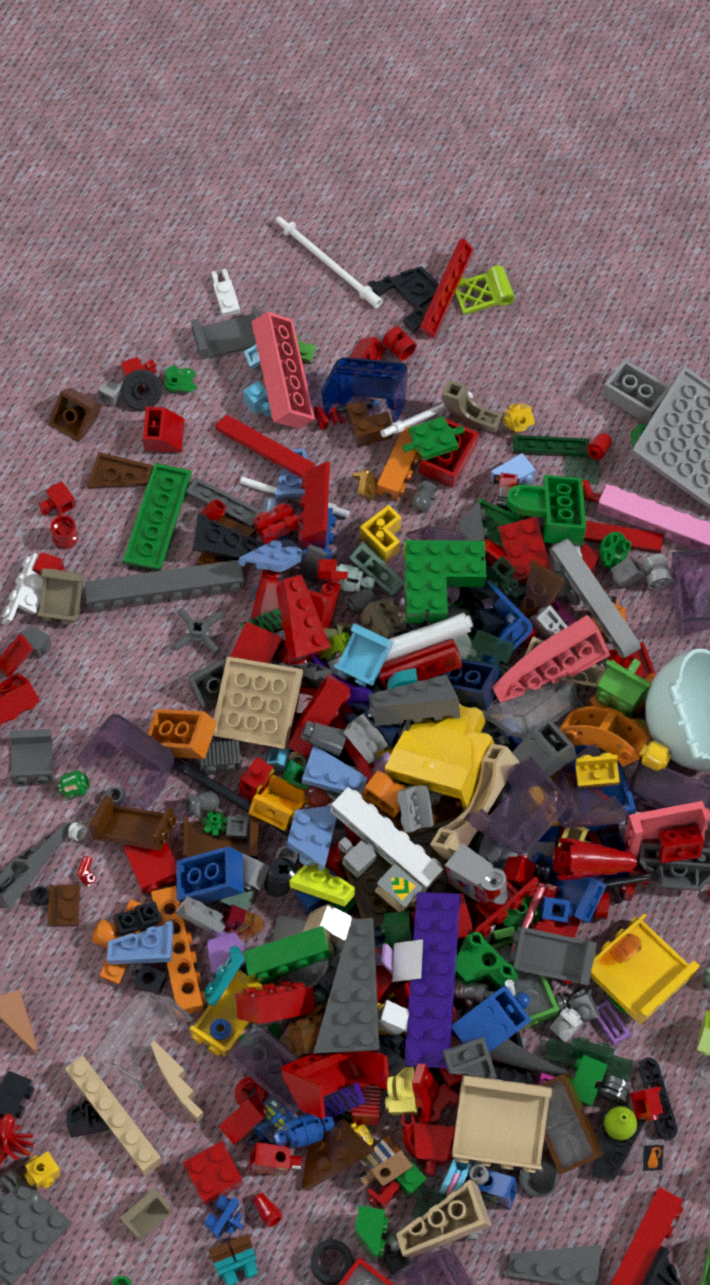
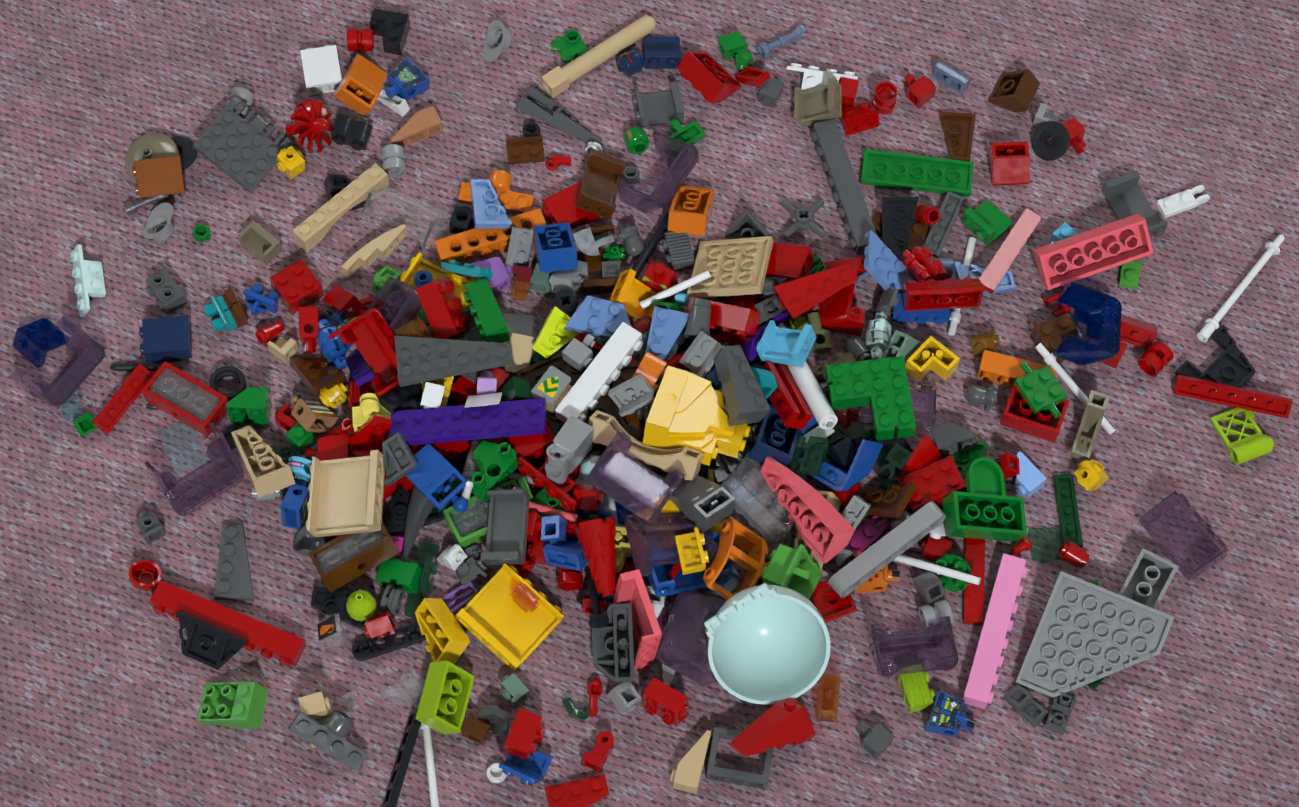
camera: 85 degrees right, 0 degrees up
(47, 468) = (951, 77): none -> sand blue brick
(59, 1050) = (393, 160): none -> light grey wheel
(75, 734) = (689, 134): none -> green plate
(80, 559) = (859, 118): none -> red bracket
(138, 919) = (512, 199): black slope -> none
(179, 379) = (1073, 176): green plate -> none
(201, 839) = (589, 244): none -> brick
(216, 1071) = (382, 276): none -> bright green bracket
(226, 463) = (986, 222): none -> green bracket
(276, 761) = (675, 289): none -> white bar
(289, 1195) = (283, 349): none -> tan panel
(328, 570) = (874, 311): red bracket -> none
(475, 1170) = (300, 482): light grey hinge -> none
(589, 352) = (1183, 536): none -> clear purple windscreen
(611, 563) = (938, 569): none -> white bar
(655, 756) = (711, 599): yellow head -> none
(656, 1039) = (442, 631): none -> yellow wedge
(680, 844) = (628, 632): red bracket -> none

